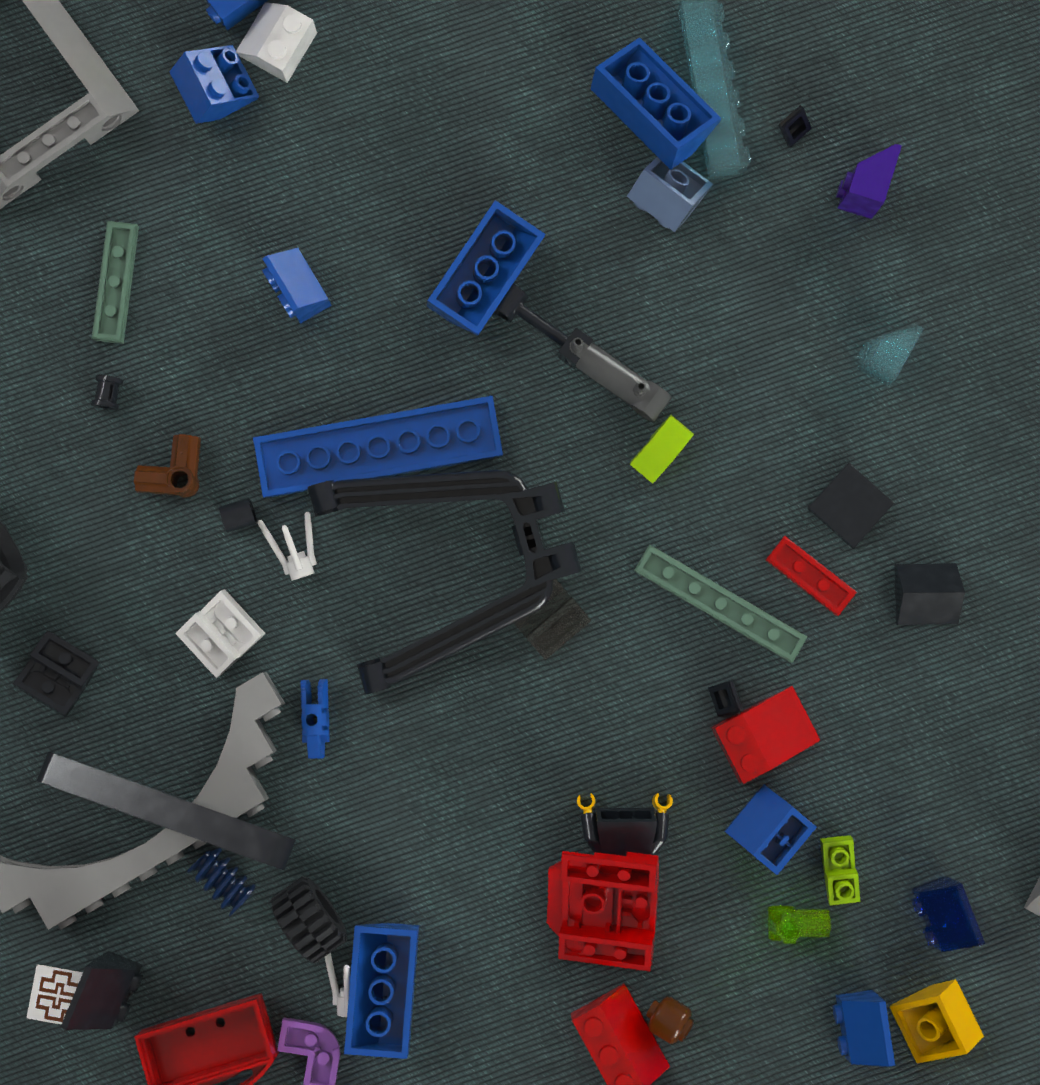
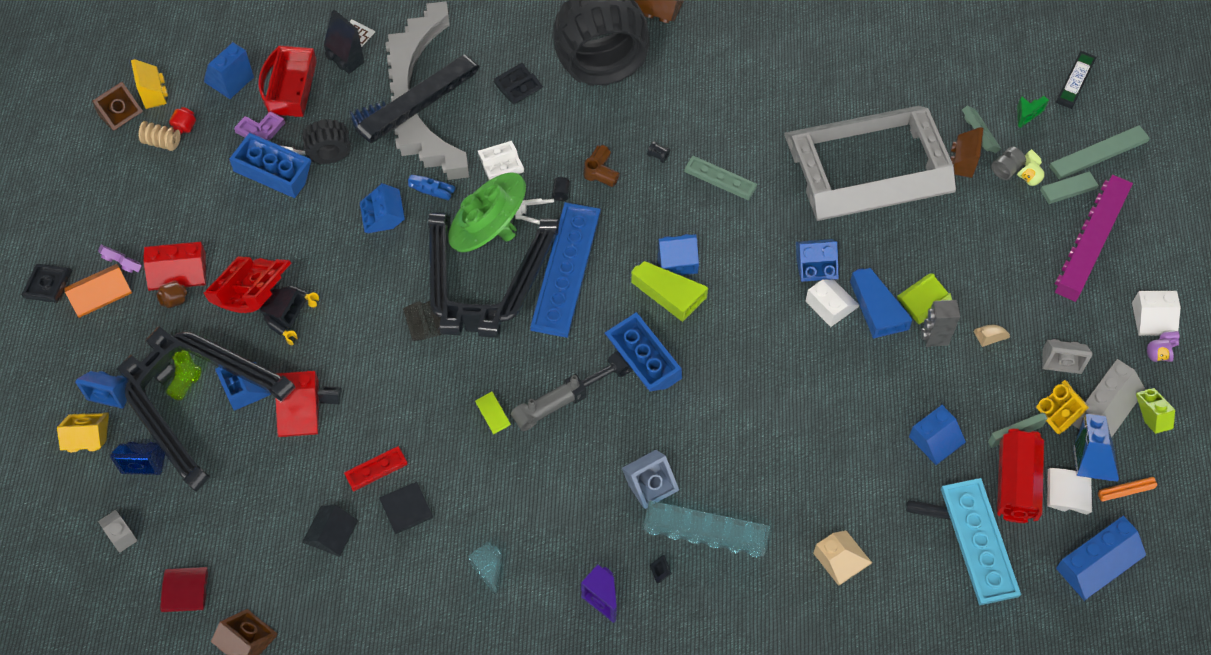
camera: 115 degrees right, 25 degrees down
(346, 593) = (488, 213): none -> bright green piece
(355, 278) = (668, 289): none -> lime slope
(389, 774) = (382, 209): none -> blue slope
(654, 102) = (707, 484): blue slope -> none
(720, 604) = (385, 412): sand green tile -> none
(778, 965) = (158, 366): none -> black piece
(840, 870) = (197, 416): lime slope -> none

